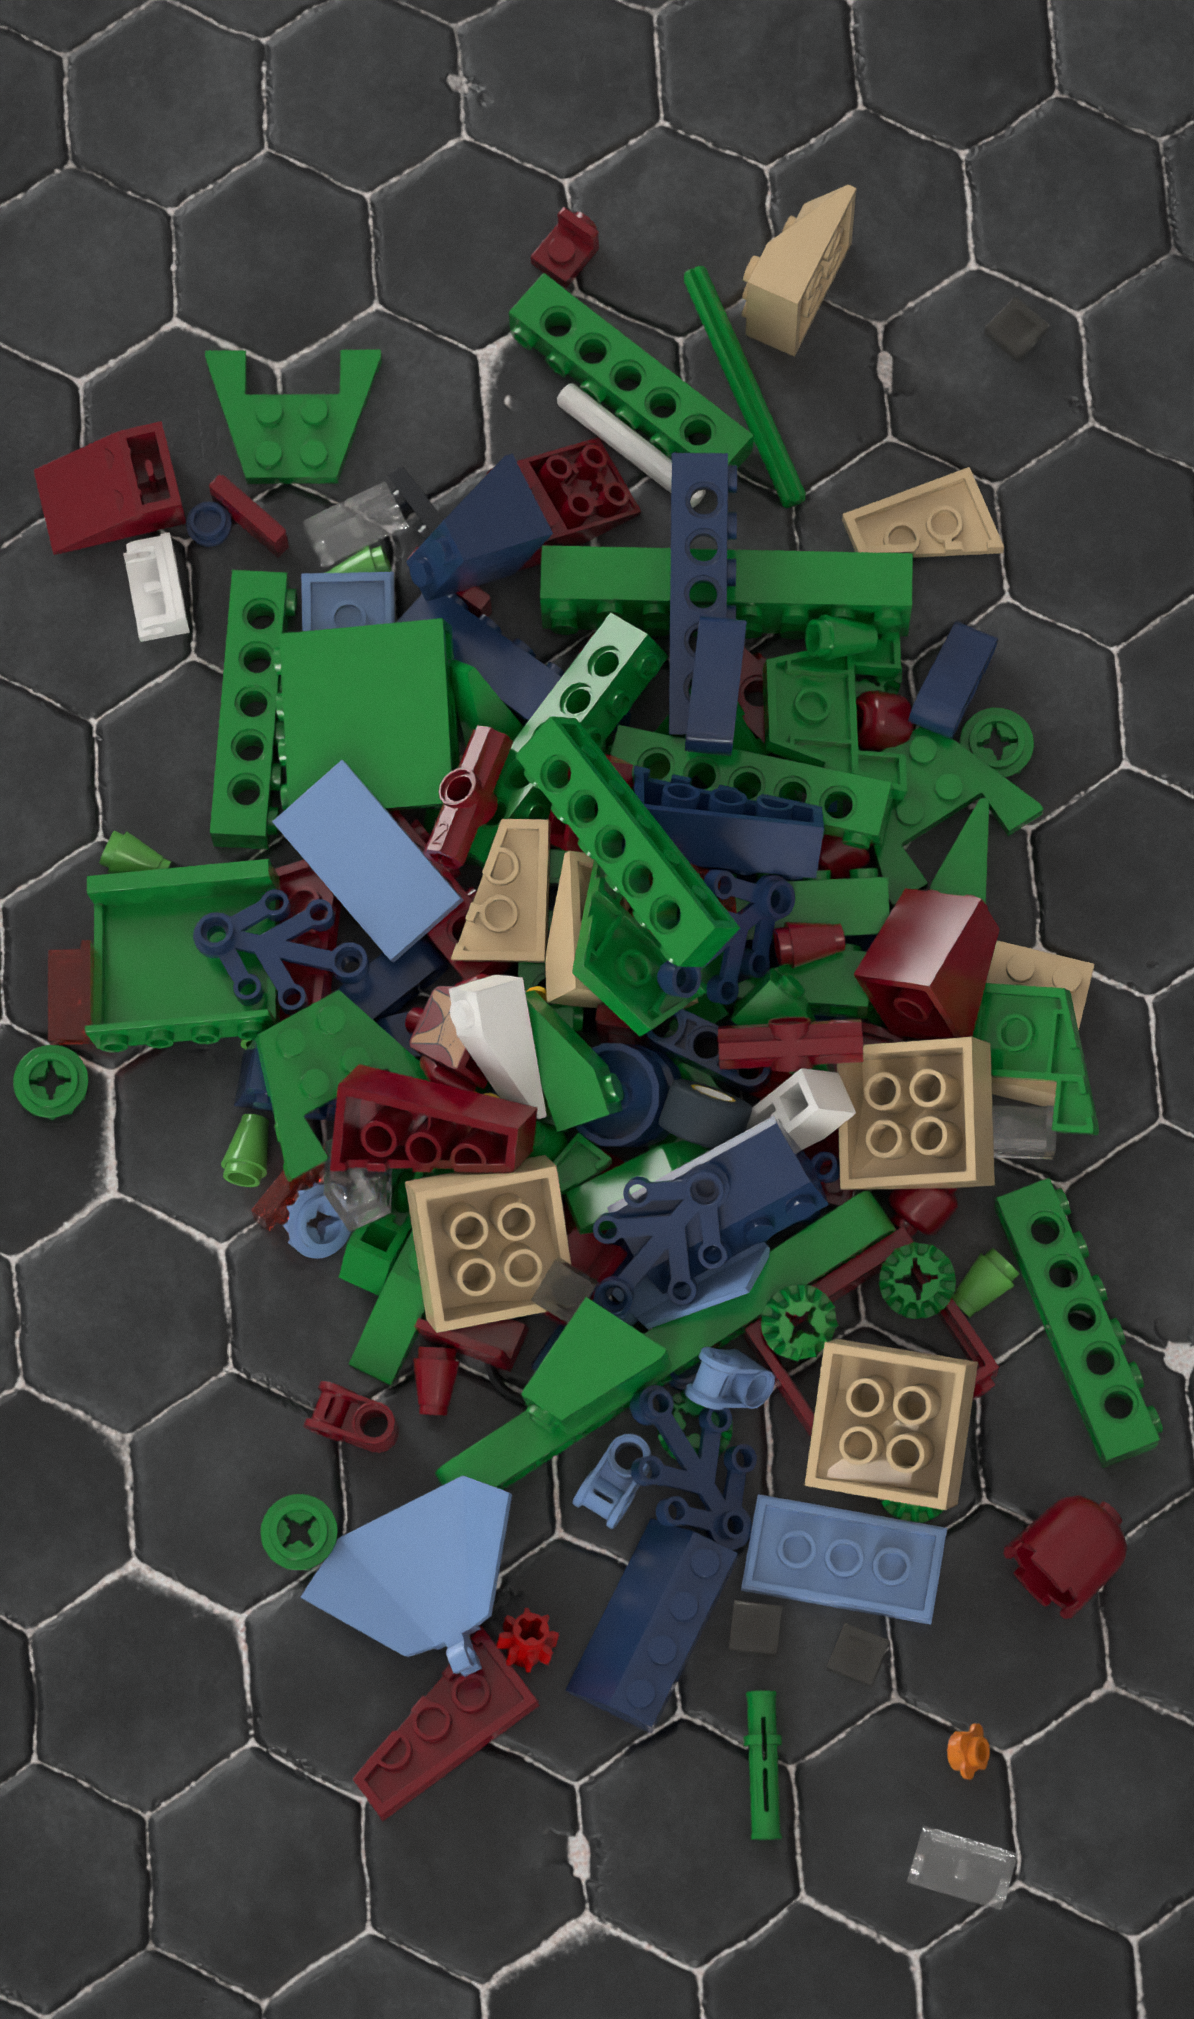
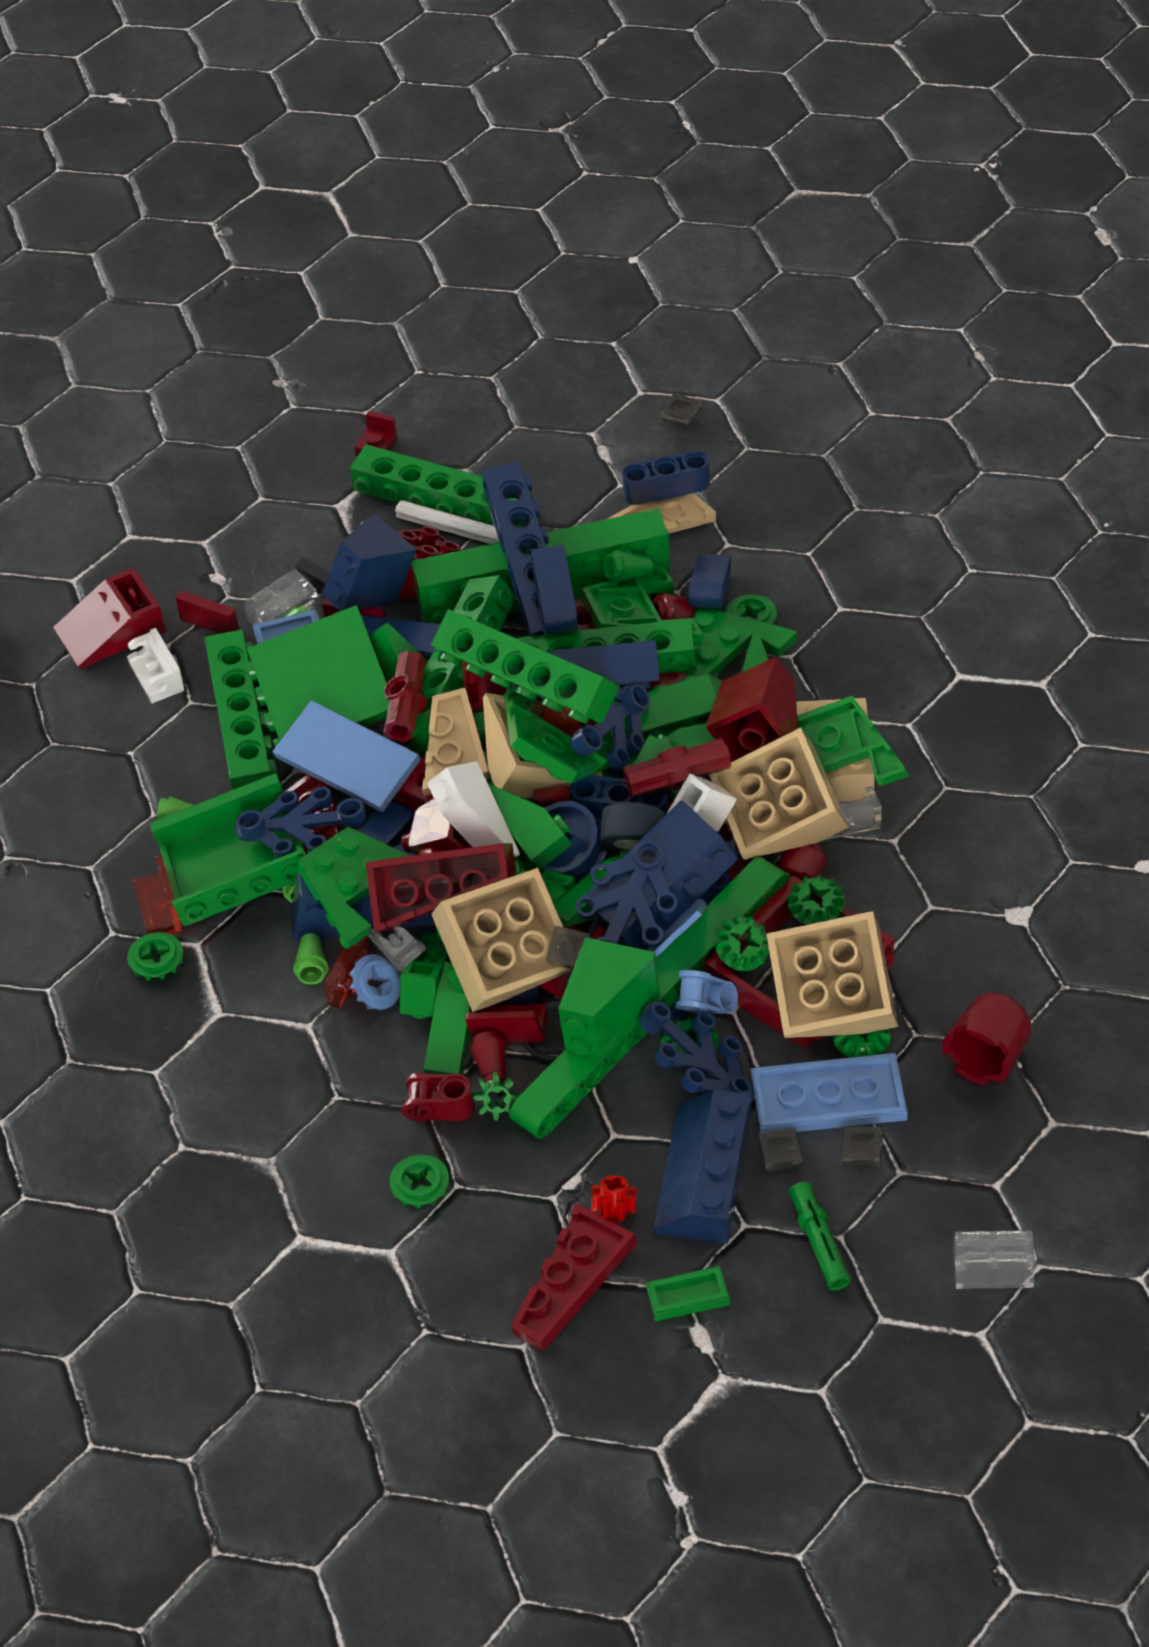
camera: 15 degrees left, 25 degrees down
(208, 524) = (180, 626): dark blue plate -> none
(293, 434) = (222, 571): green wing -> none
(421, 1572) = (523, 1171): medium blue panel -> none
(424, 1442) = (493, 1105): none -> green gear
(580, 1792) = (687, 1293): none -> green tile
(612, 1482) = (642, 1087): medium blue piece -> none
(744, 387) = (493, 458): green axle -> none
(798, 270) = (530, 401): tan slope -> none
(806, 942) = (666, 720): dark red cone -> none
(968, 460) = (666, 477): none -> dark blue beam
(968, 1751) = (968, 1184): orange plate -> none
(985, 1281) = (866, 895): bright green cone -> none
(1111, 1437) = (938, 908): green brick -> none

